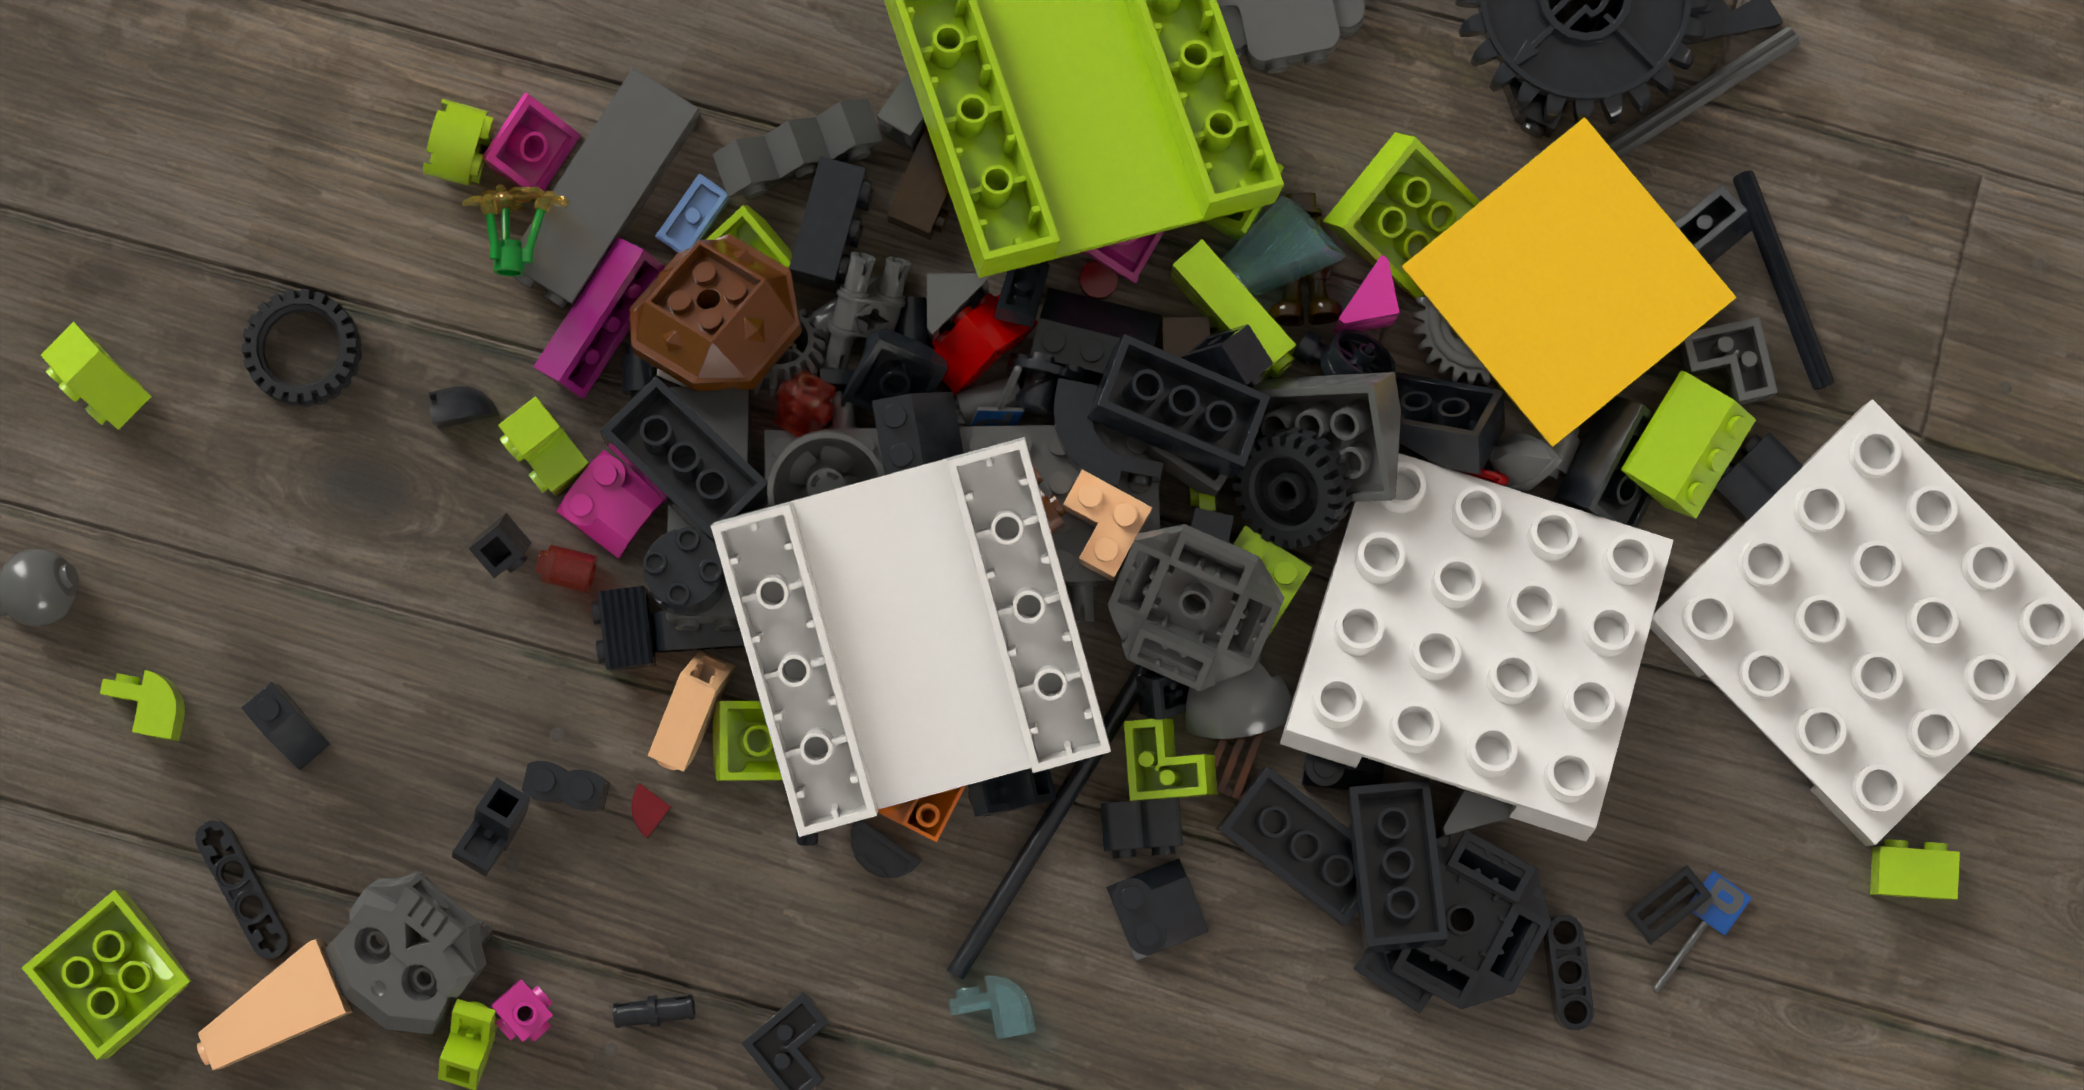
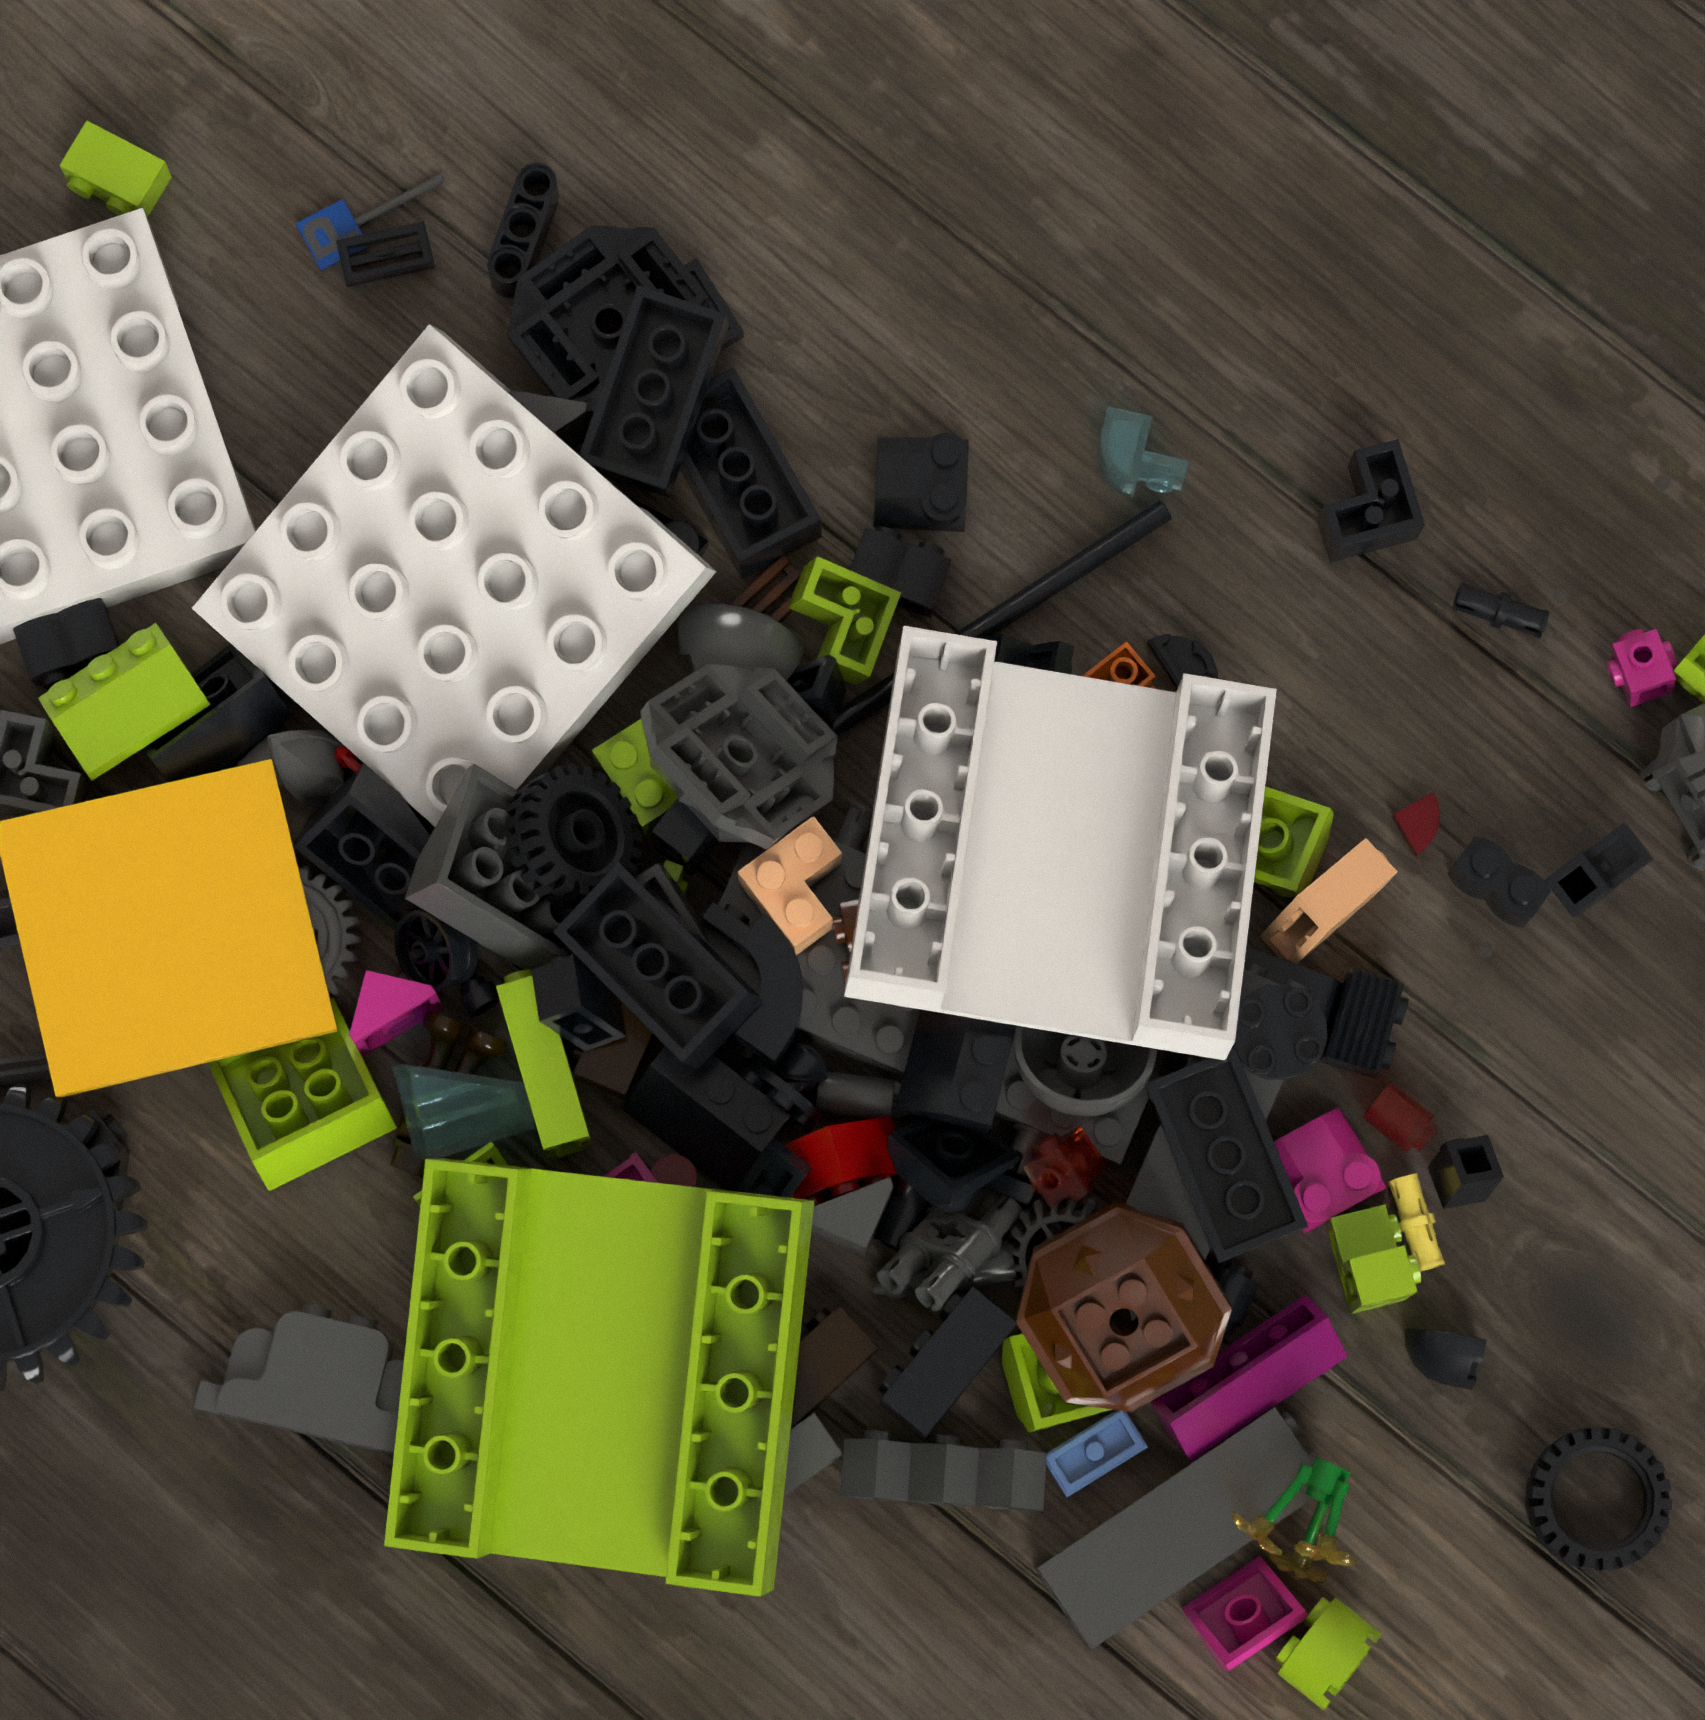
camera: 160 degrees left, 5 degrees down
(522, 494) = (1416, 1221): none -> light yellow pin
(1000, 415) = (849, 1068): dark grey piece -> none

